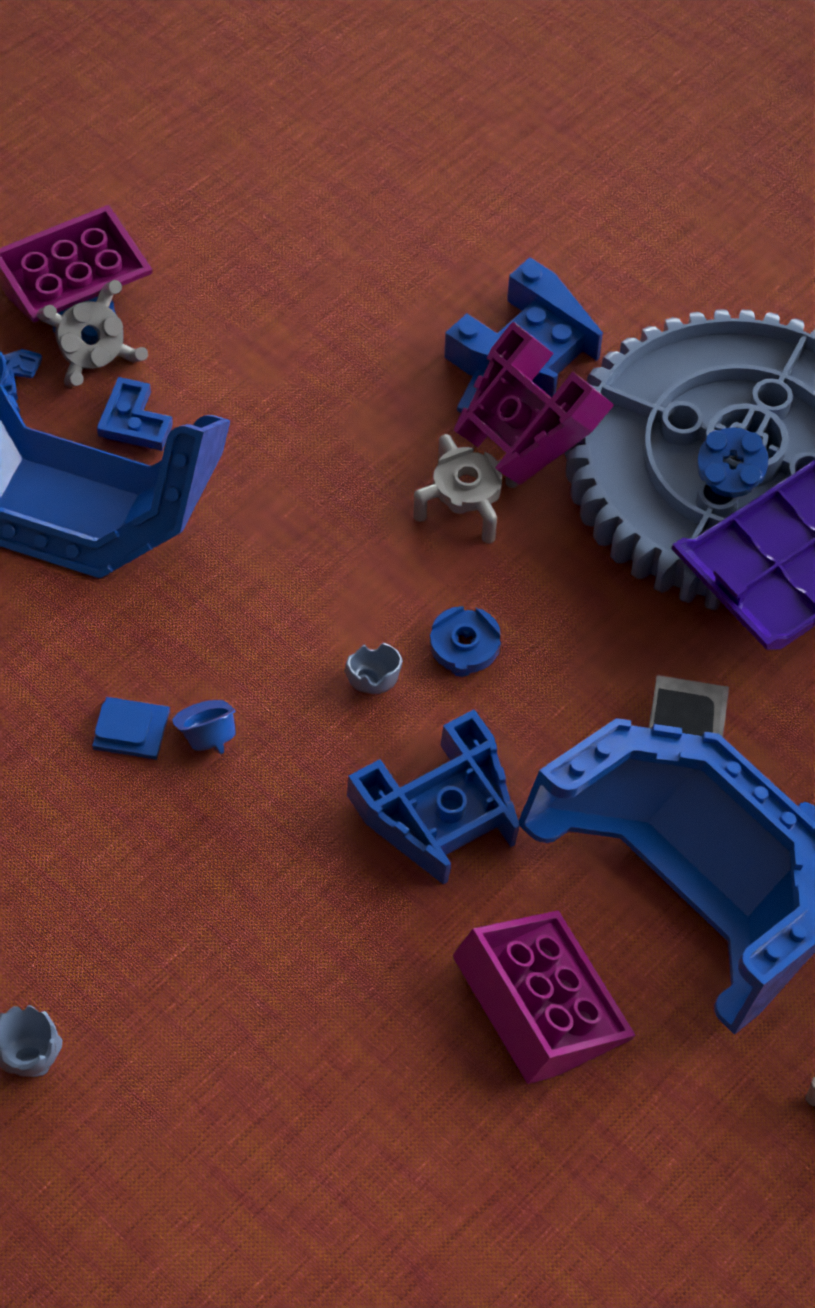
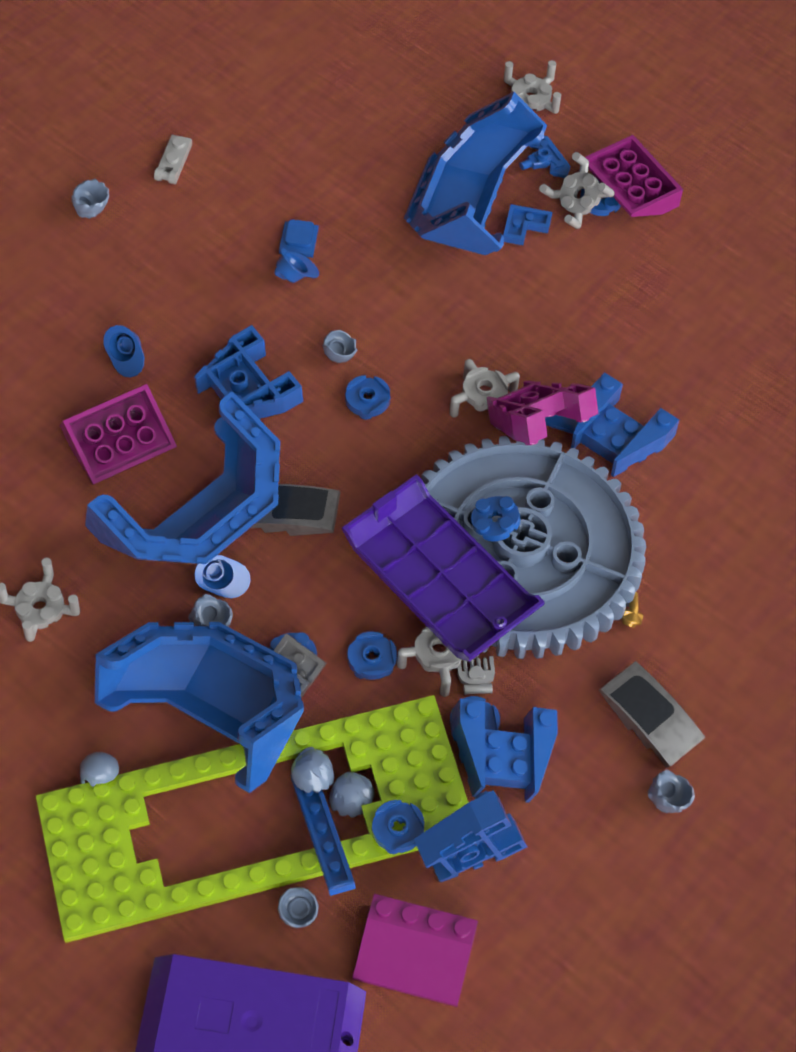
camera: 85 degrees right, 0 degrees up
(375, 980) = (124, 350): none -> blue piece

